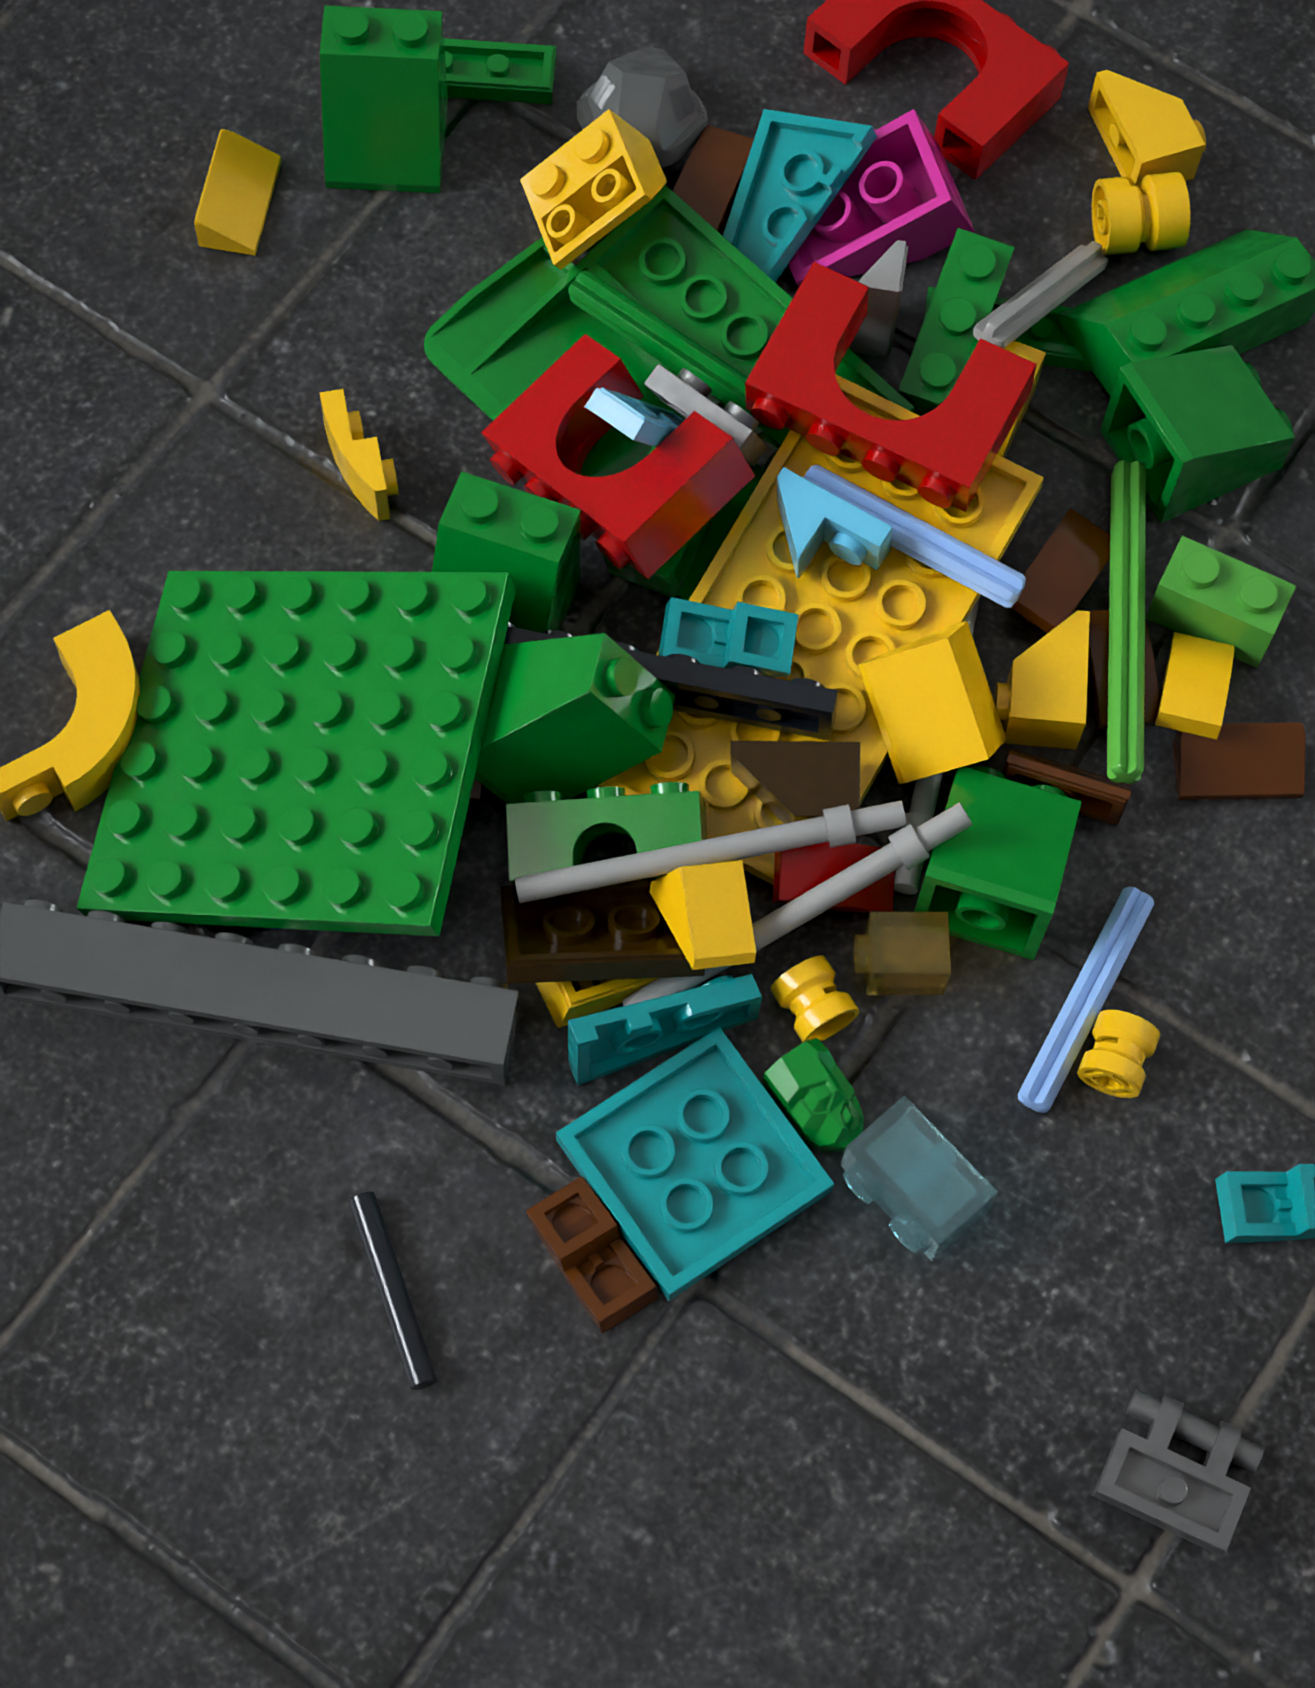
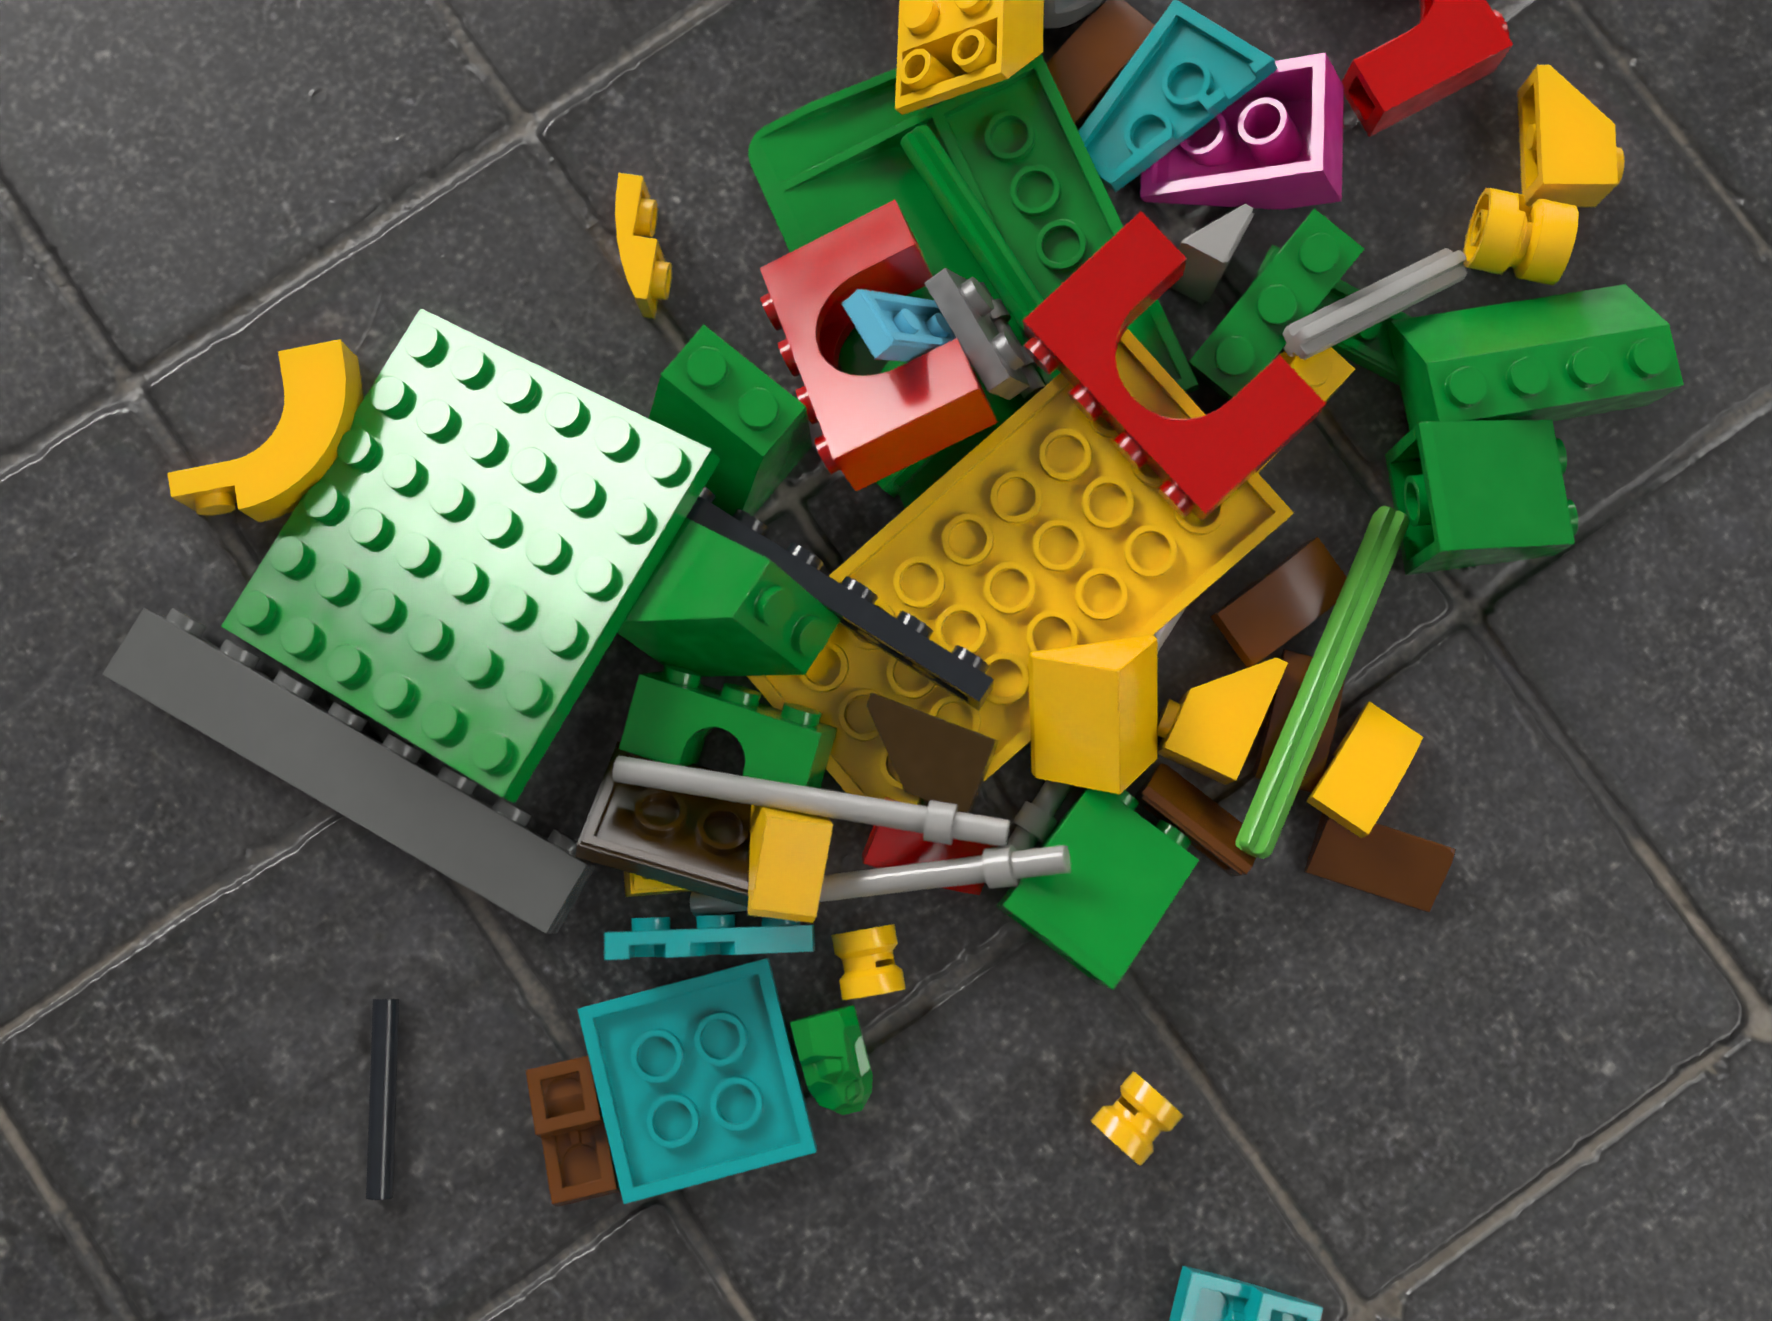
camera: 25 degrees right, 15 degrees up
(728, 637) = (916, 574): teal slope -> none
(819, 516) = (1041, 480): medium azure slope -> none
(904, 953) = (970, 945): clear yellow brick -> none
(916, 1179) = (895, 1175): clear light blue brick -> none
(929, 543) = (1136, 532): light blue axle -> none
(1085, 1000) = (1130, 1047): light blue axle -> none
(1220, 600) = (1428, 689): bright green brick -> none

